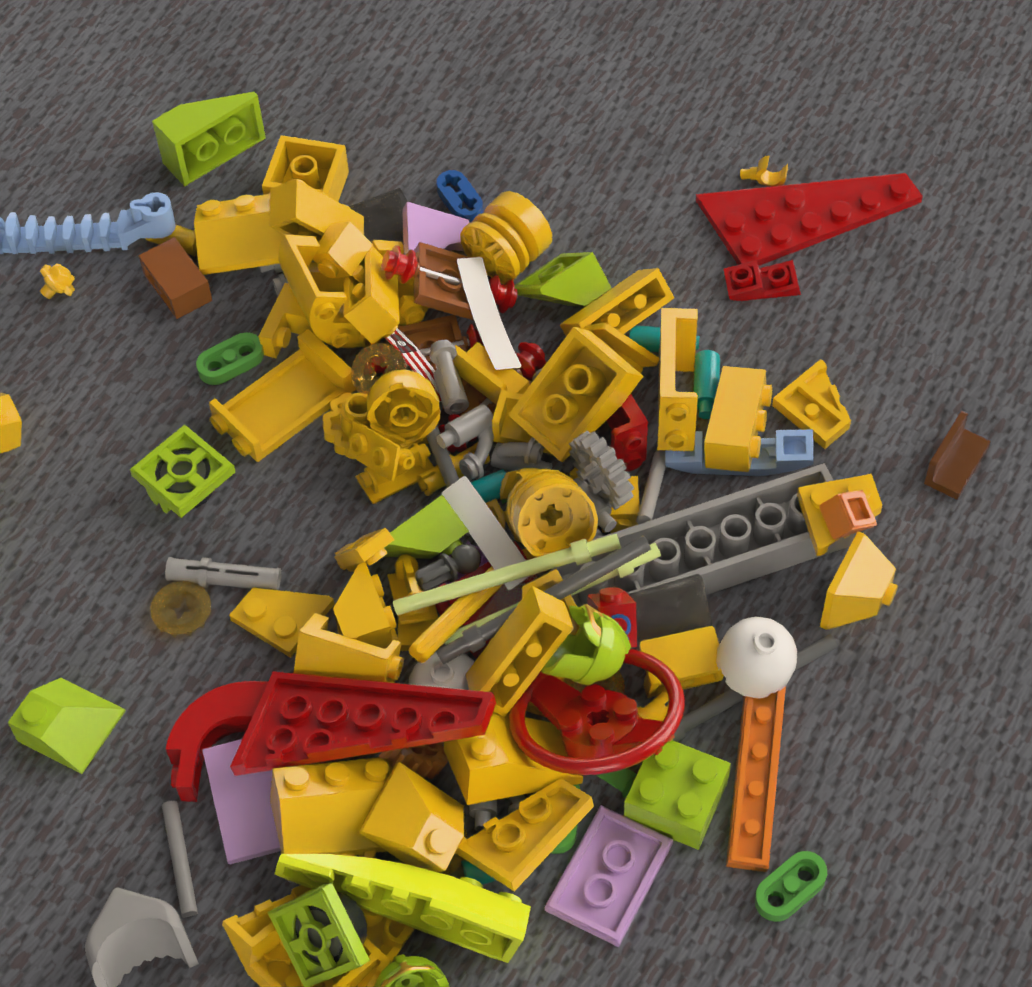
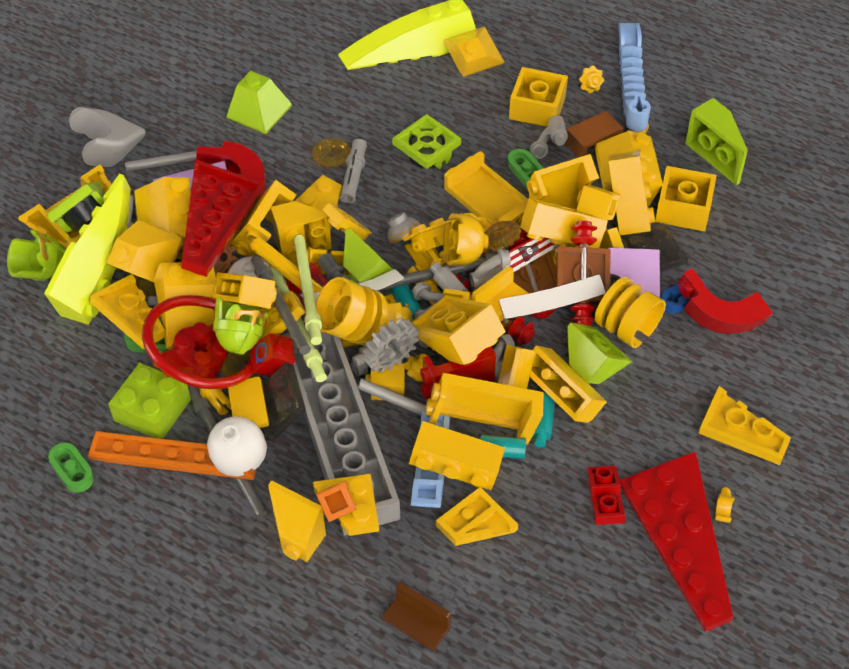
camera: 90 degrees right, 5 degrees down
(97, 337) = (537, 96): none -> yellow brick
(172, 313) = (556, 130): none -> light grey plant
(354, 497) = (400, 227): none -> light grey piece
(499, 140) = (720, 314): none -> red arch
(609, 875) = (99, 365): lavender tile -> none
(660, 152) = (737, 427): none -> yellow wing

